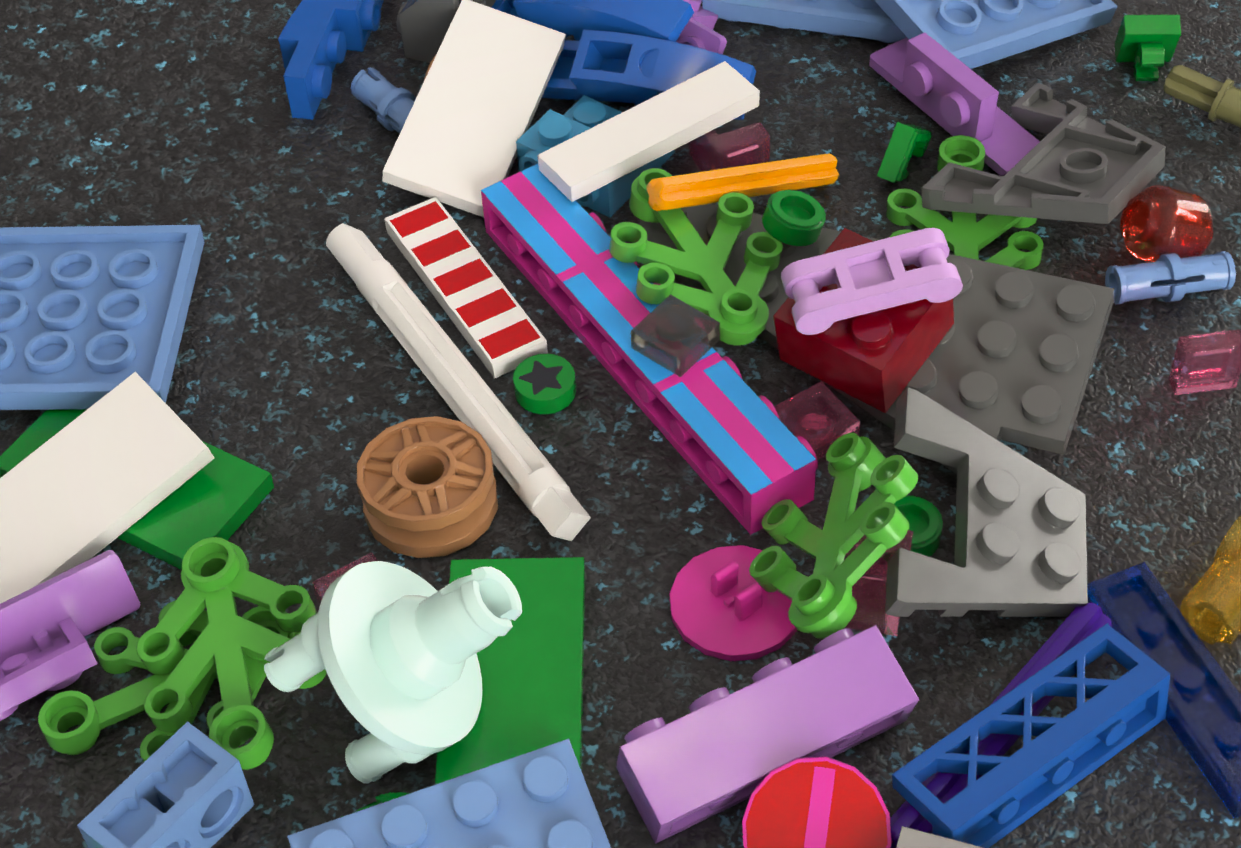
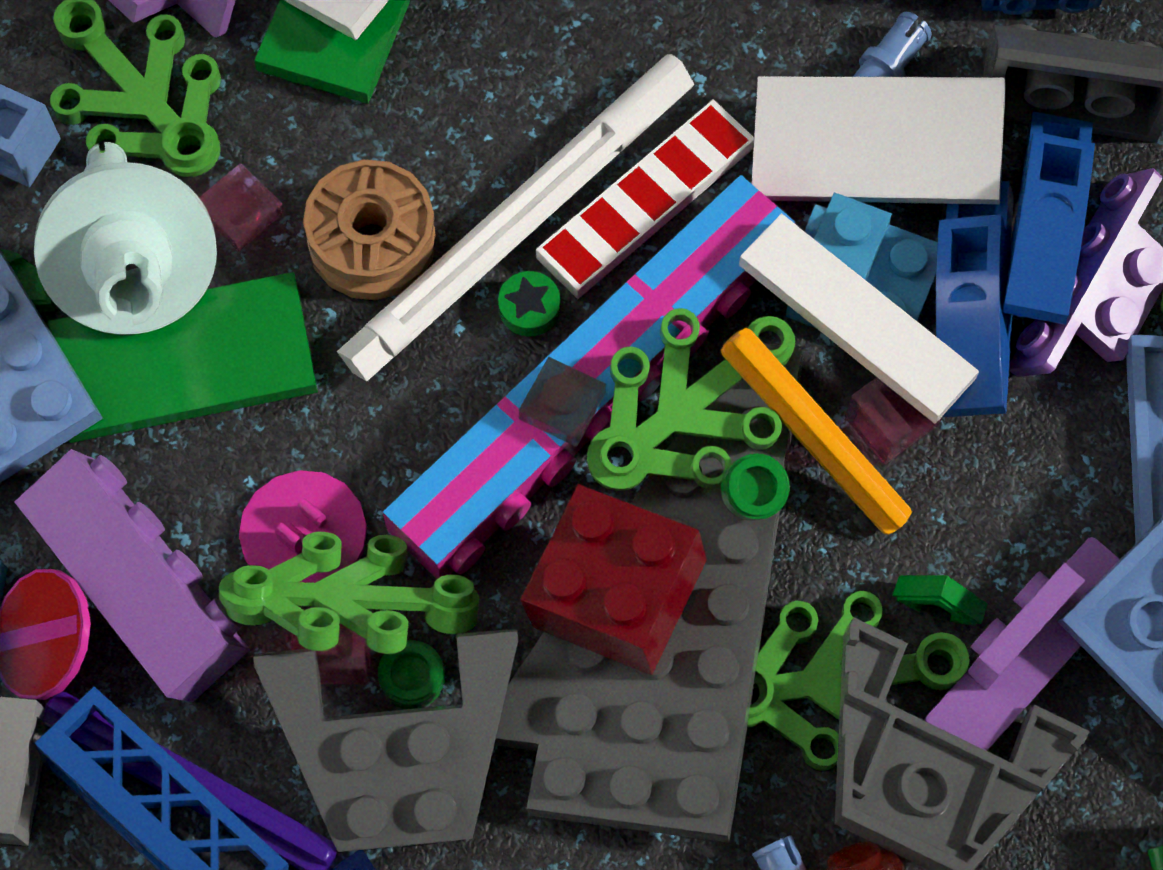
camera: 75 degrees right, 20 degrees up
(221, 643) = (154, 111): bright green plant -> none
(817, 417) = (510, 560): clear pink plate -> none
(870, 279) = (602, 563): lavender plate -> none

